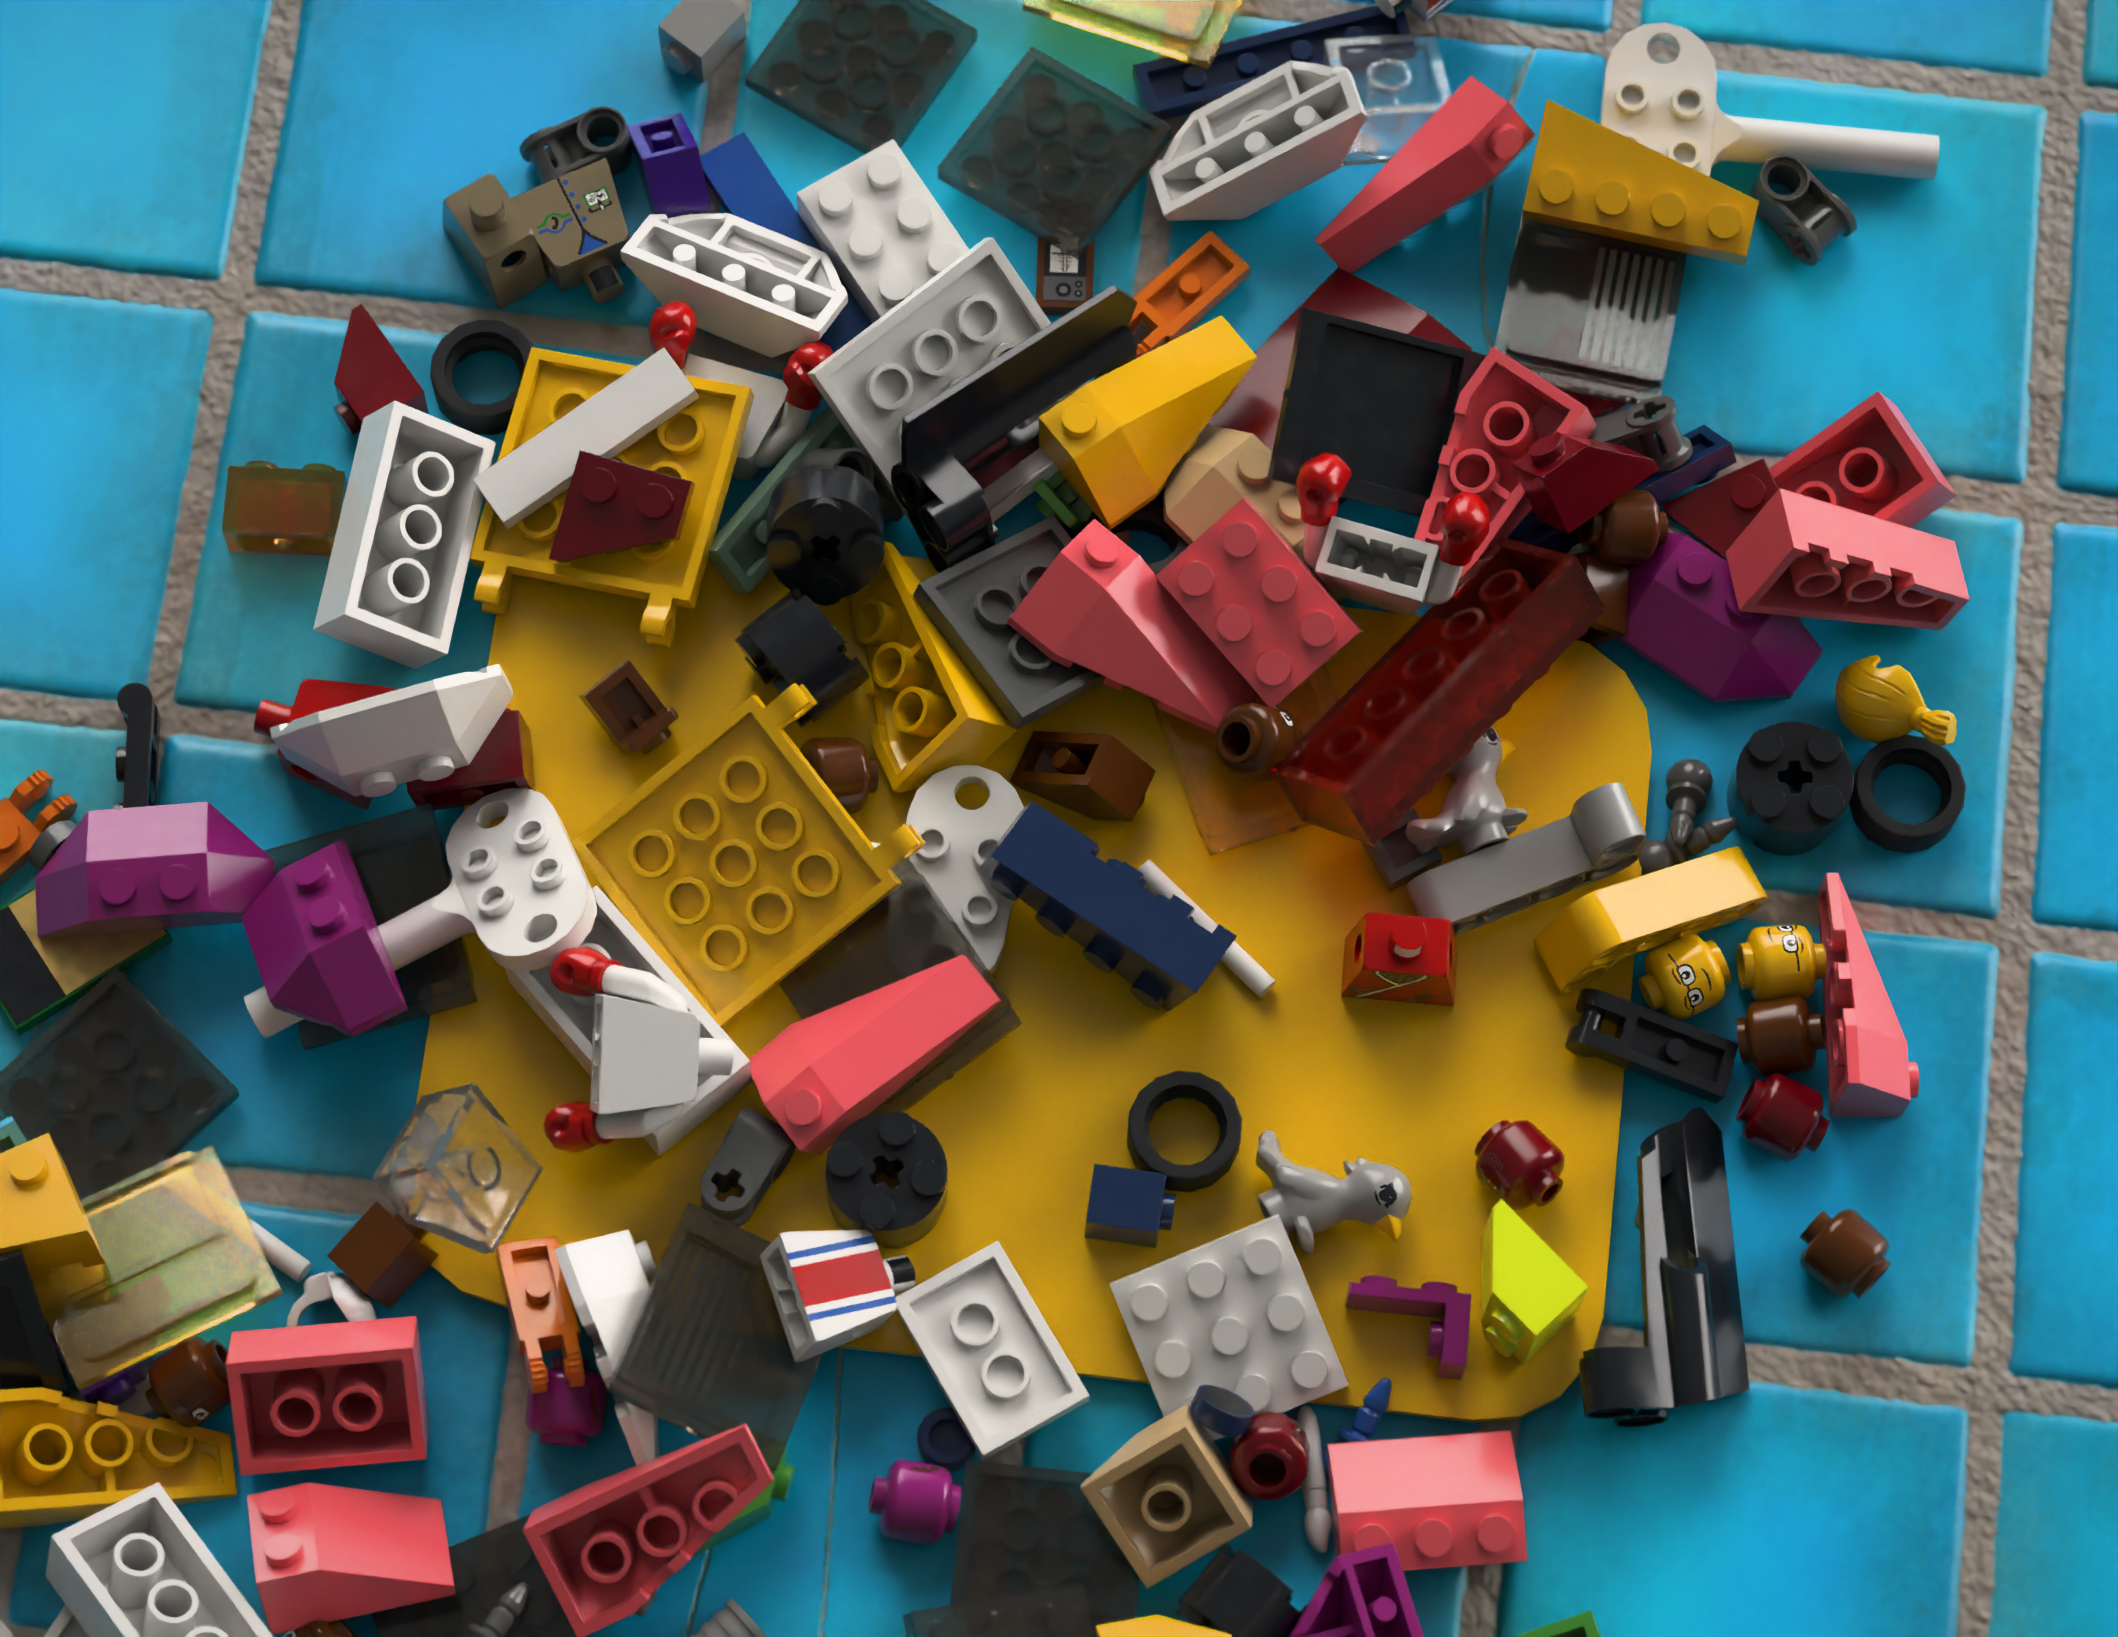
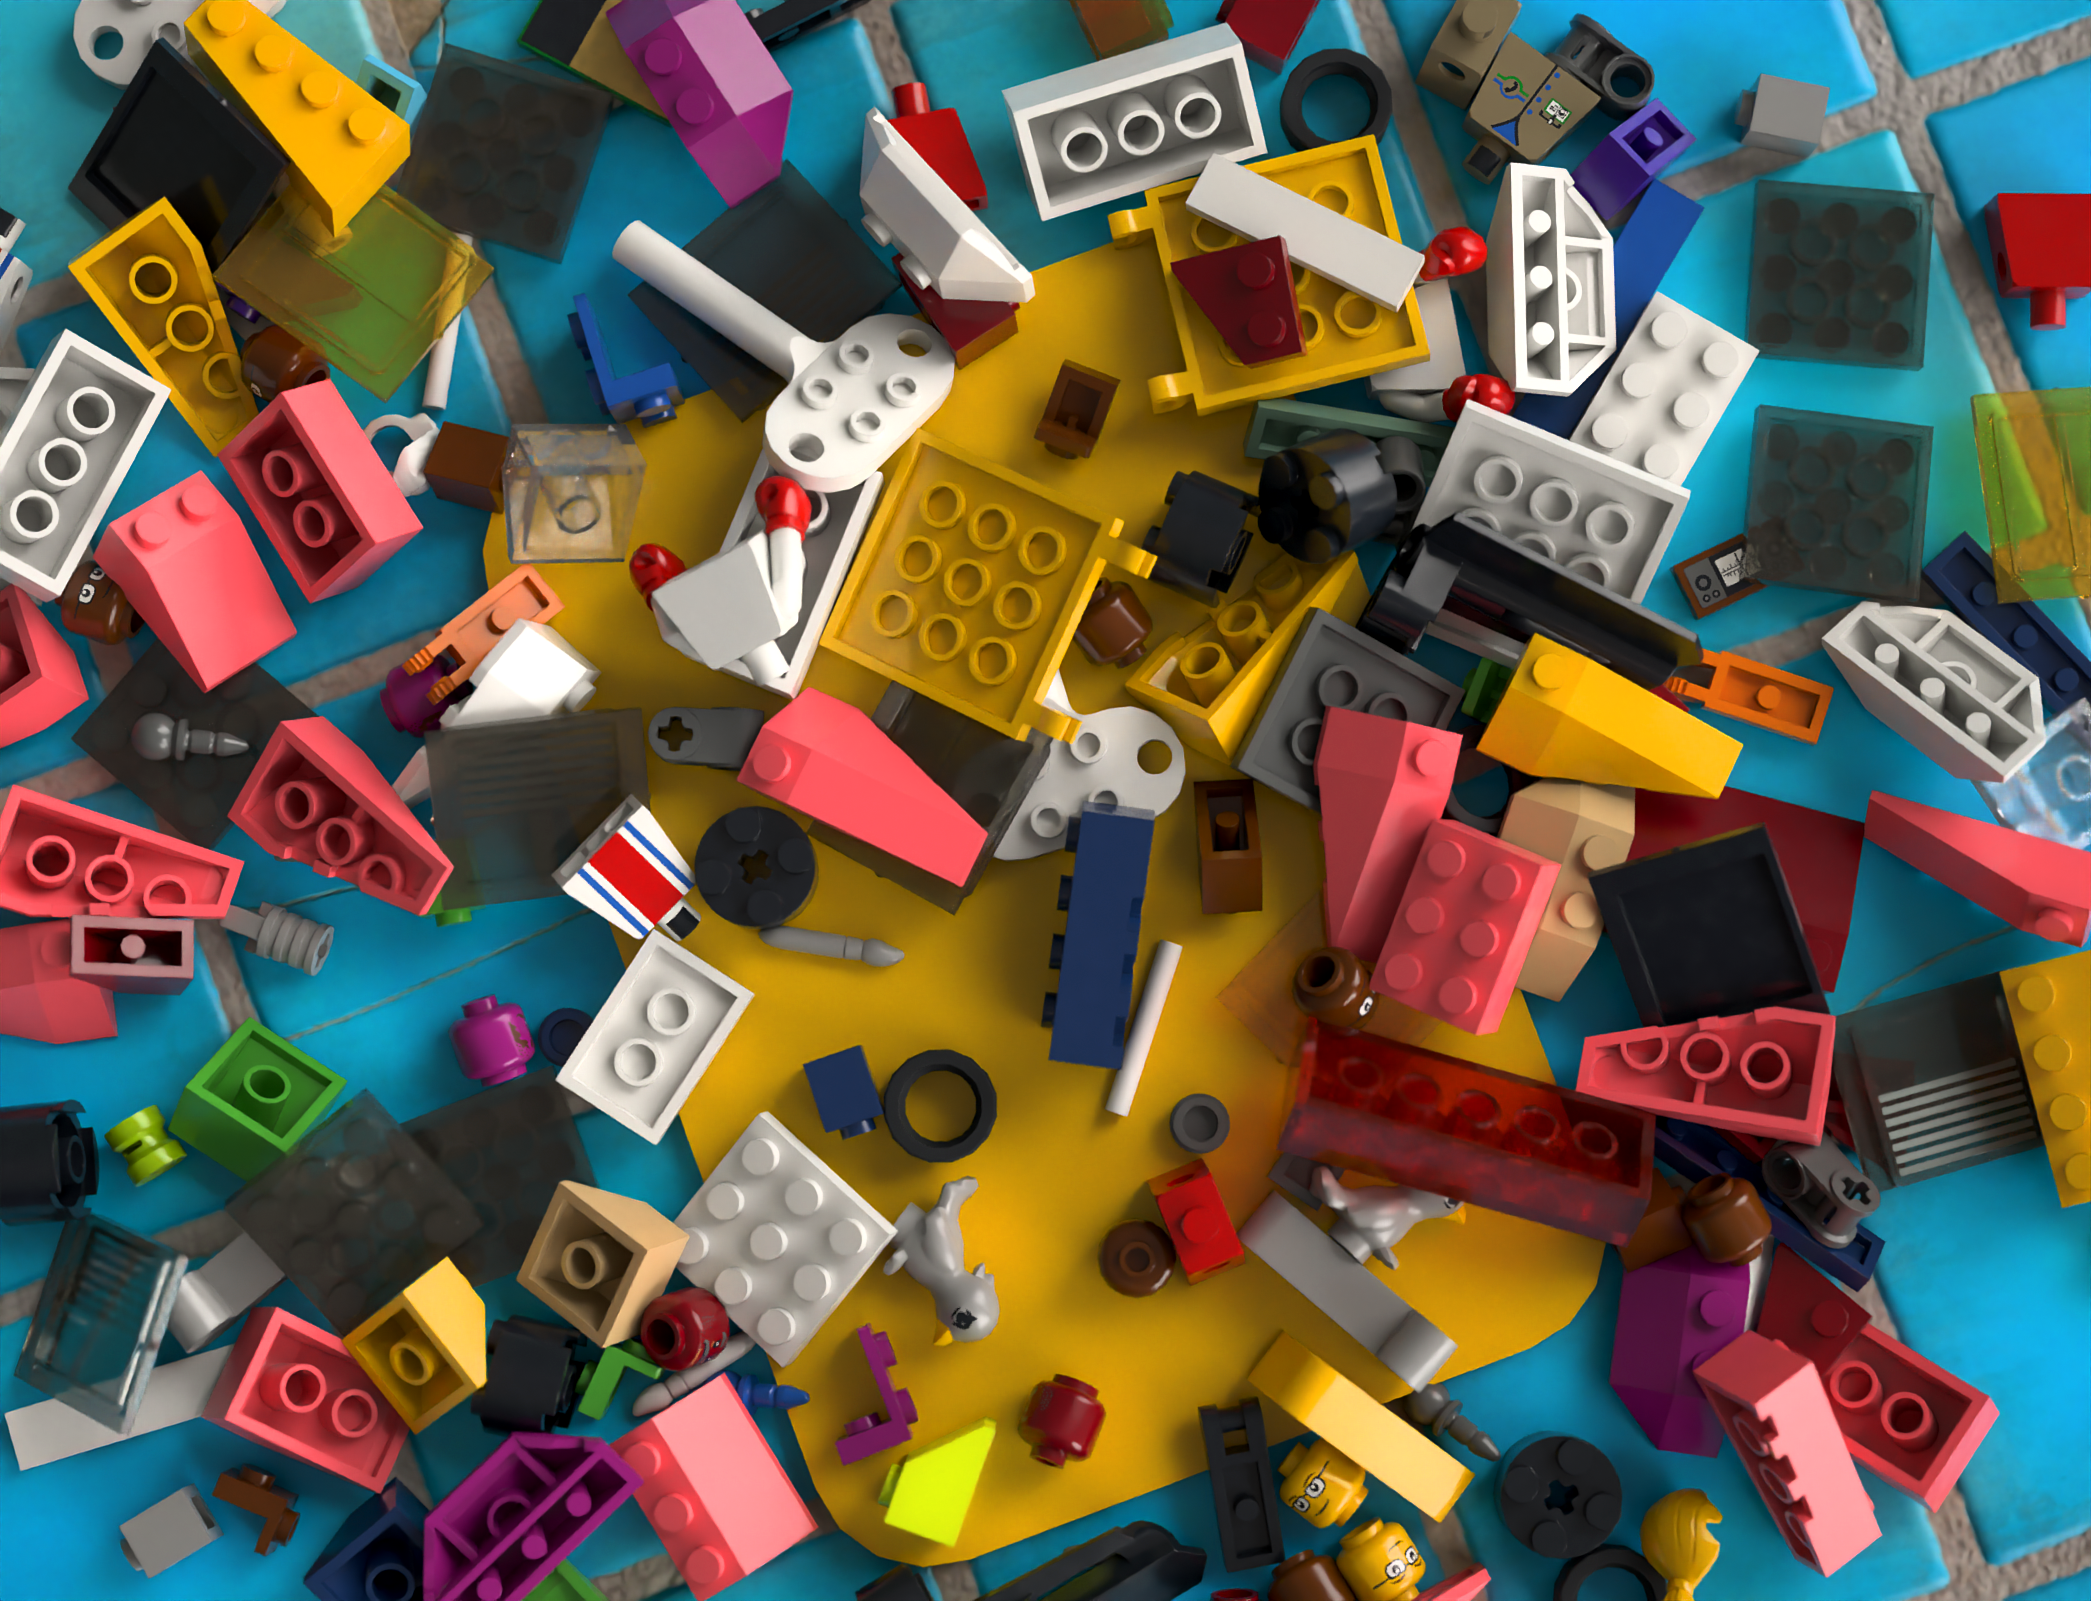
camera: 65 degrees right, 15 degrees up
(323, 945) = (709, 262): magenta wedge -> none
(380, 1094) = (641, 395): none -> blue bracket
(1012, 1127) = (870, 951): none -> light grey piece
(1221, 1411) = (693, 1270): dark blue tile -> none
(1274, 1547) = (602, 1379): none -> bright green bracket
(1314, 924) = (1199, 1123): none -> dark grey tile
(1376, 563) = (1559, 1013): white torso -> none
(1406, 1027) = (1136, 1258): none -> reddish brown head
(1577, 477) = (1745, 1161): dark red slope -> none
(1688, 786) = (1517, 1396): dark grey bar -> none

